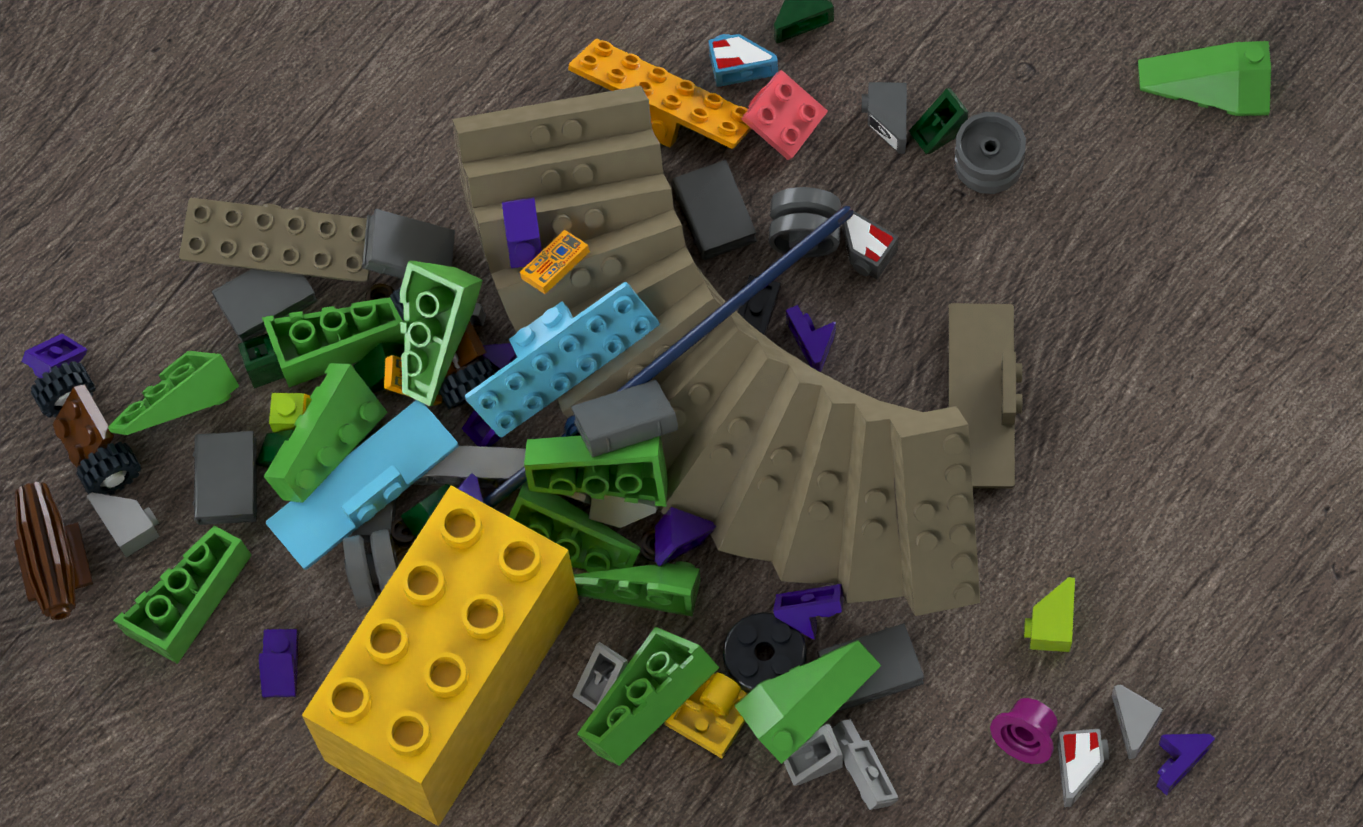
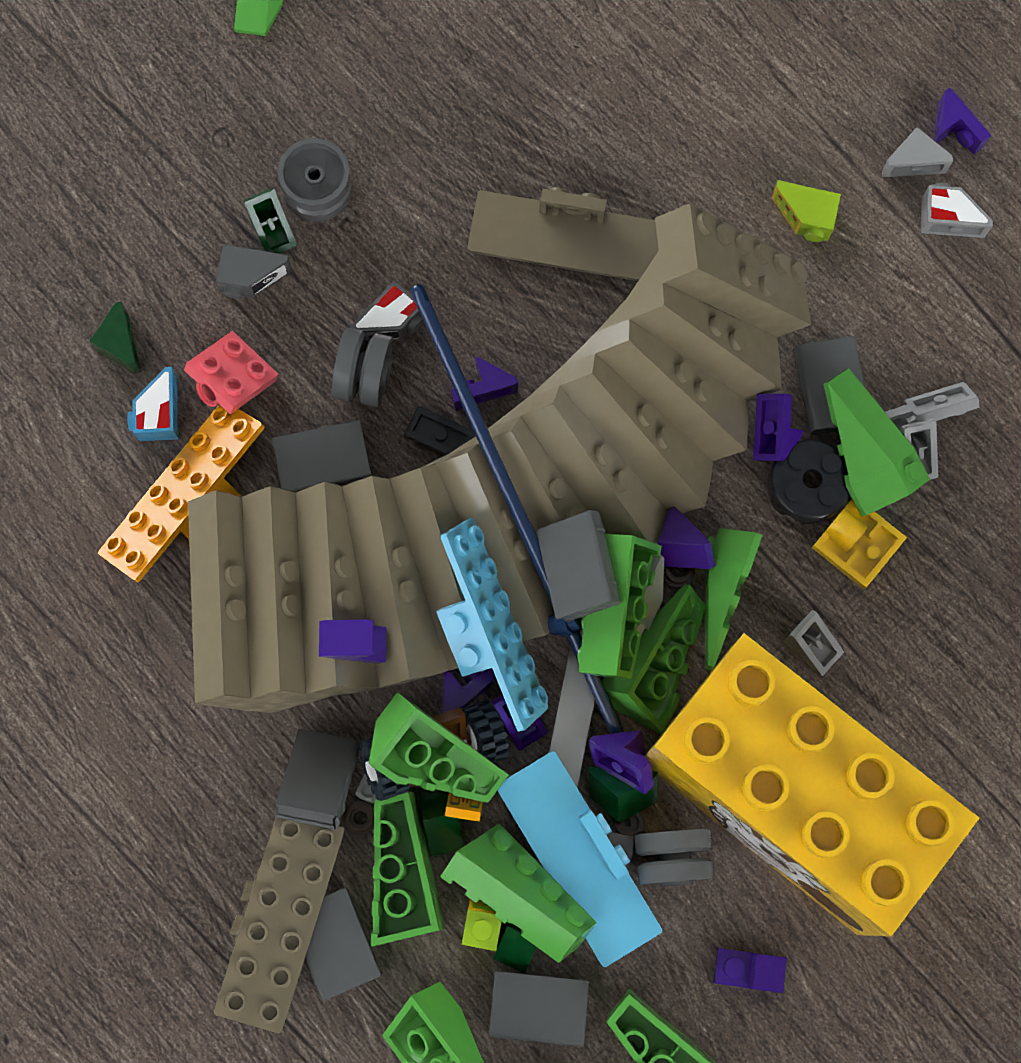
camera: 90 degrees left, 10 degrees up
(260, 361) = (406, 956): dark green slope -> none
(554, 261) = (391, 612): light orange tile -> none
(646, 694) = (833, 586): bright green wedge -> none
(1026, 731) = (919, 251): magenta piece -> none

